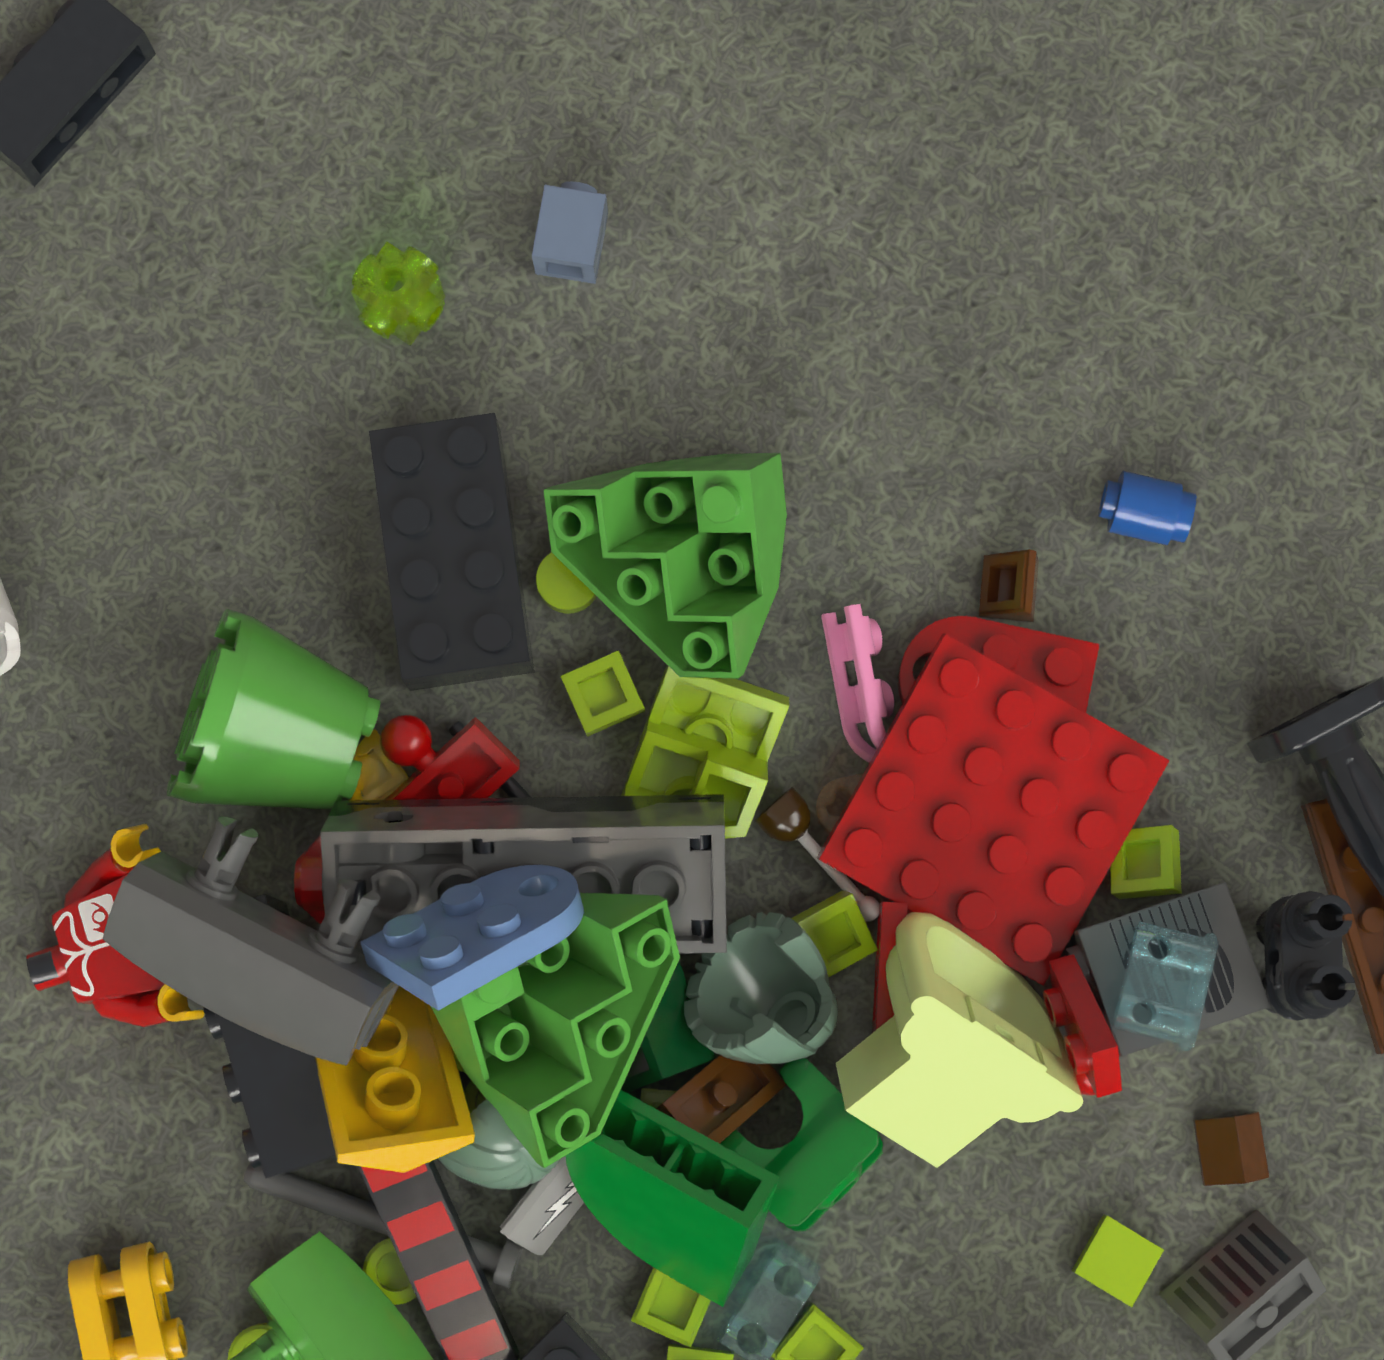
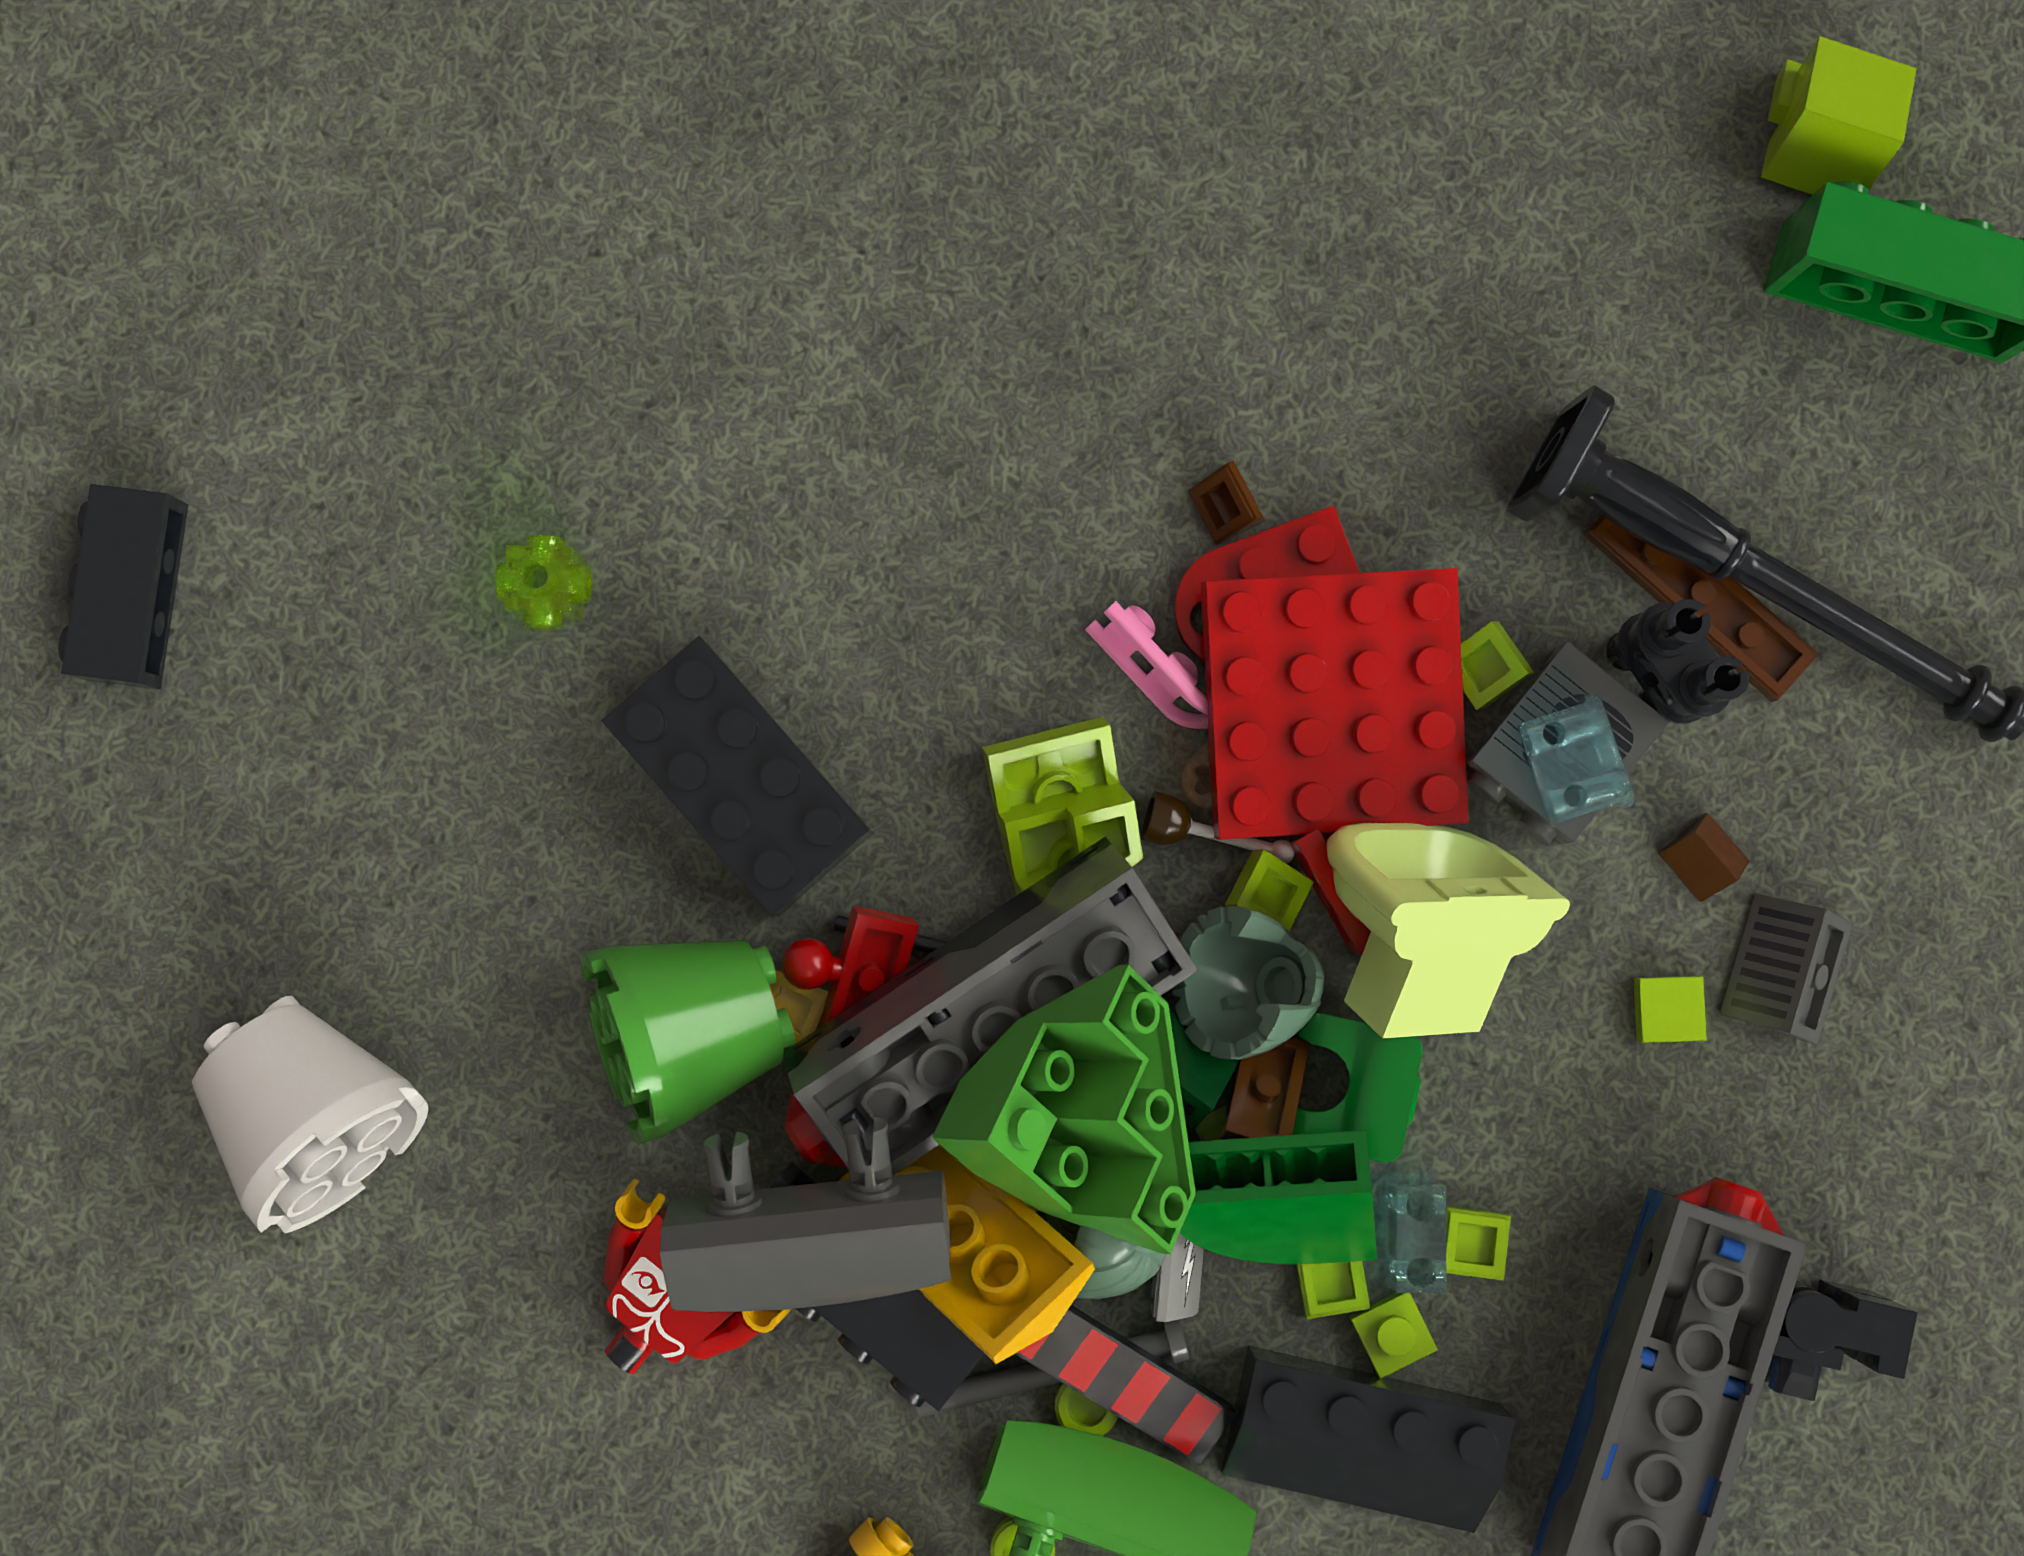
camera: 35 degrees left, 5 degrees up
(476, 932) = (988, 1097): medium blue plate -> none
(561, 588) = (851, 737): lime tile -> none
(570, 232) = (657, 434): sand blue brick -> none
(602, 693) = (945, 814): lime plate -> none
(680, 552) = (933, 654): bright green brick -> none
(1089, 1039) = (1543, 848): red plate -> none
(1147, 508) = (1301, 363): blue brick -> none

